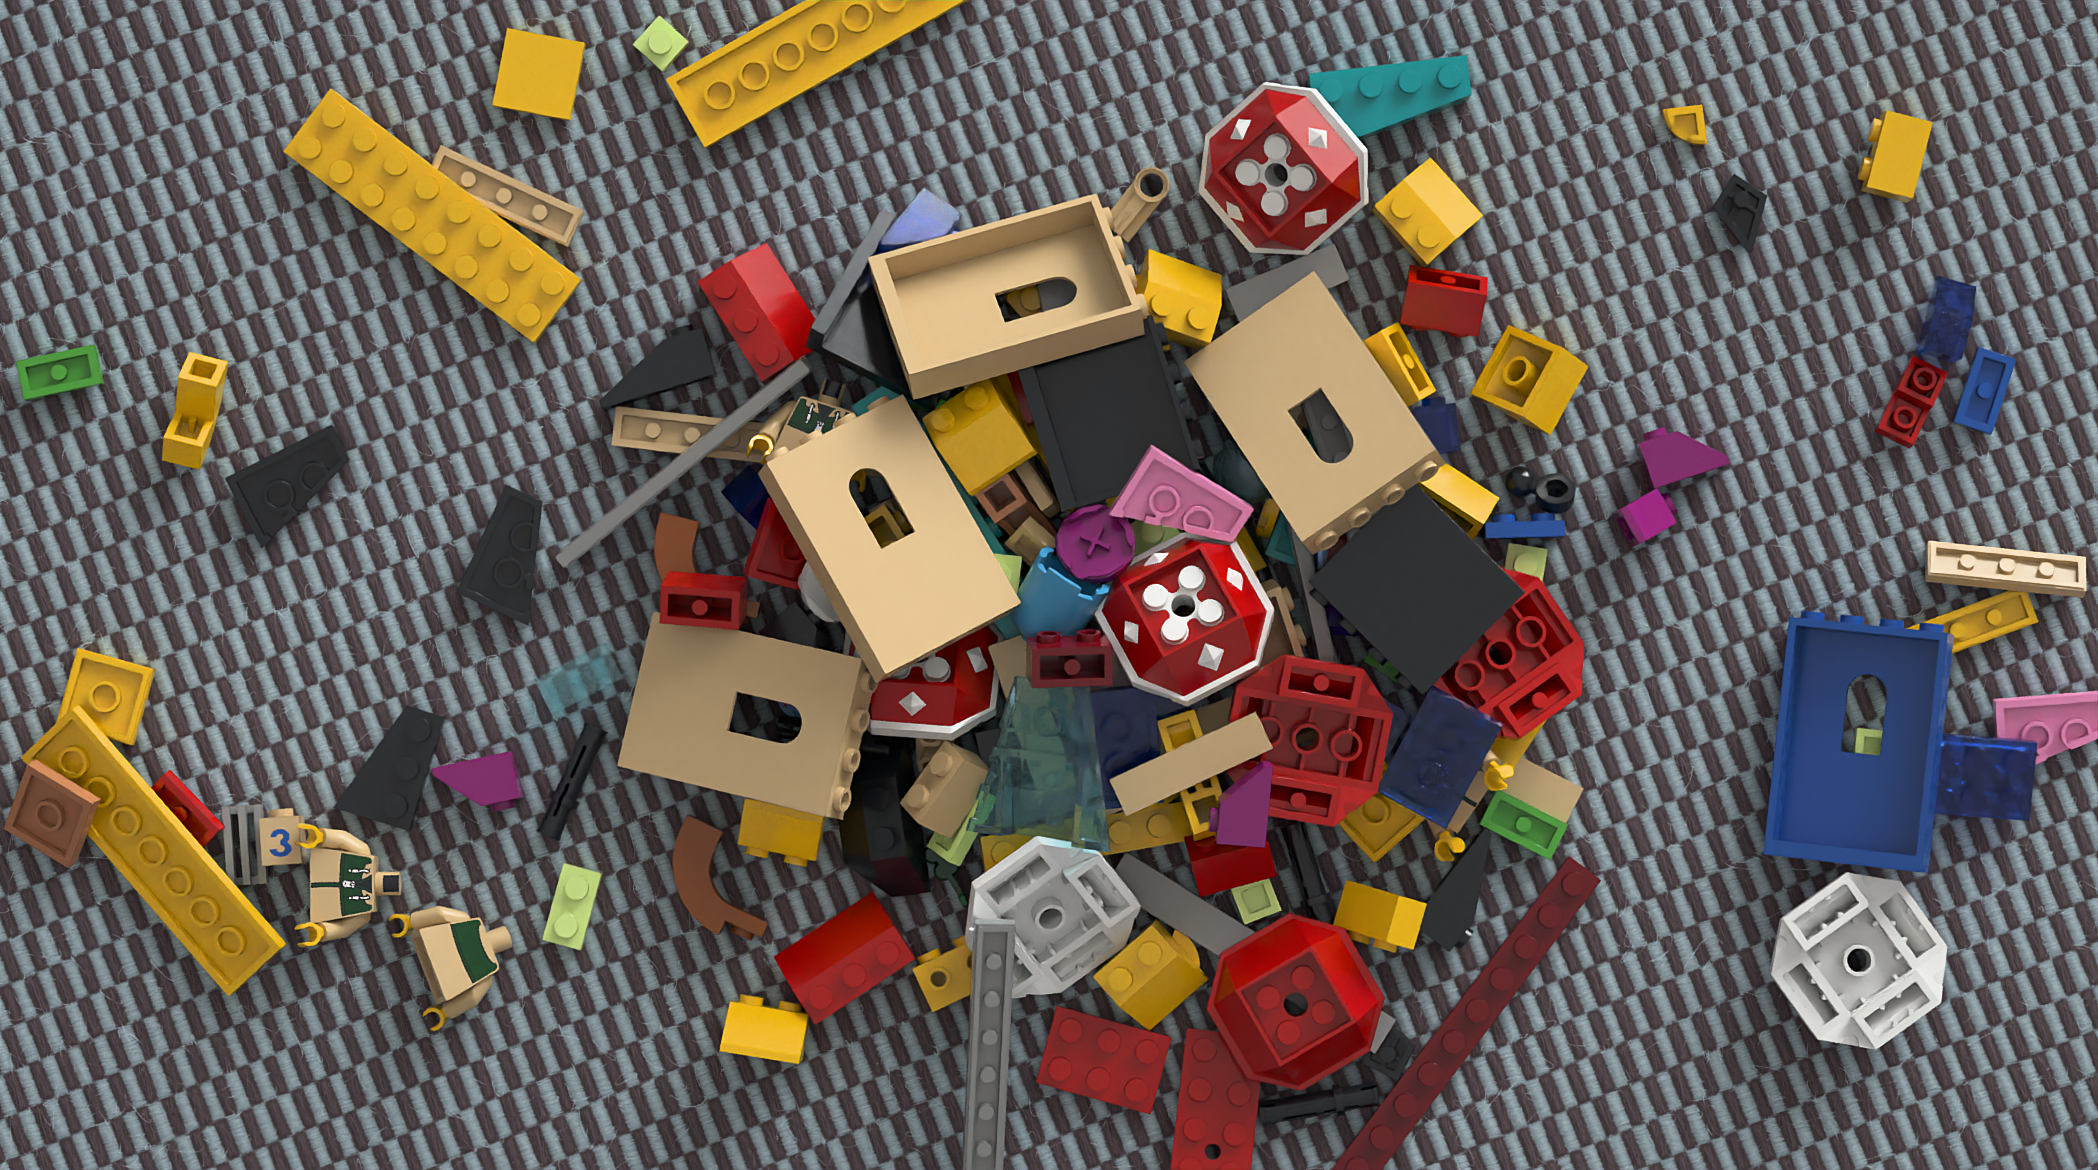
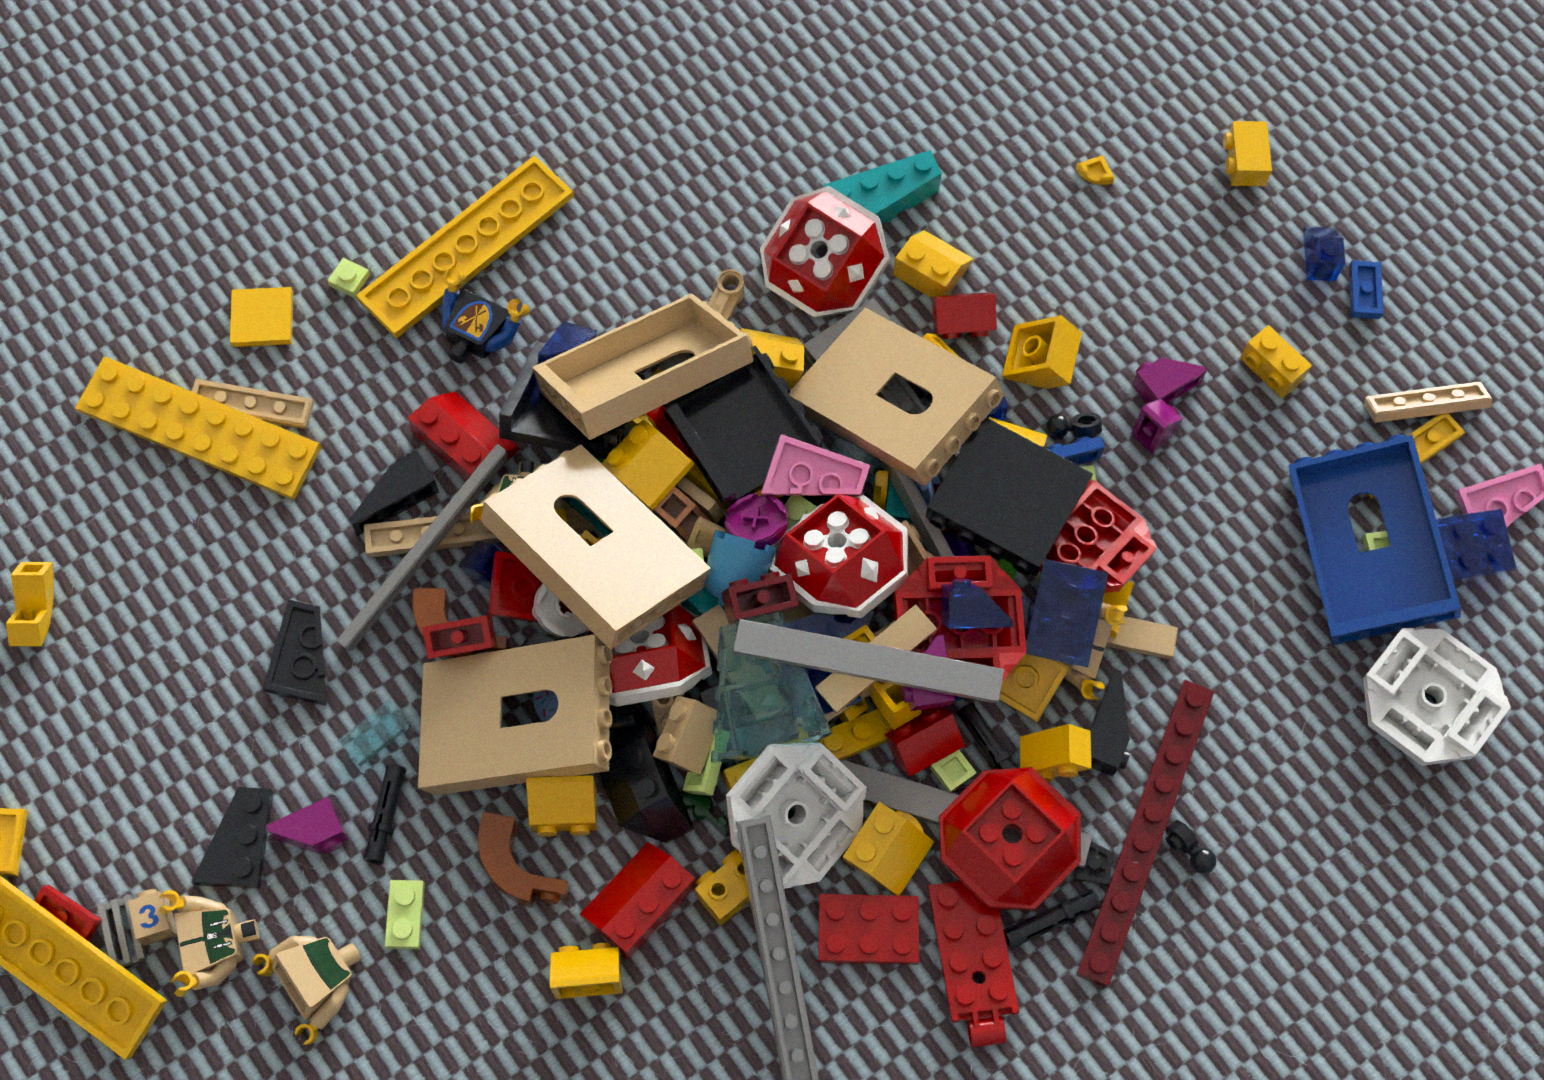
camera: 20 degrees left, 20 degrees down
(283, 482) = (113, 639): black wing -> none
(811, 157) = (476, 323): none -> torso
(1174, 779) = (868, 661): none -> light grey tile
(1321, 733) = (970, 607): none -> clear blue slope
(1517, 1078) = (1183, 839): none -> black plate
(1523, 824) = (1142, 664): bright green plate -> none
(1741, 210) = (1153, 214): black piece -> none
(1825, 468) = (1275, 361): none -> yellow brick
(1911, 402) = (1317, 310): red slope -> none

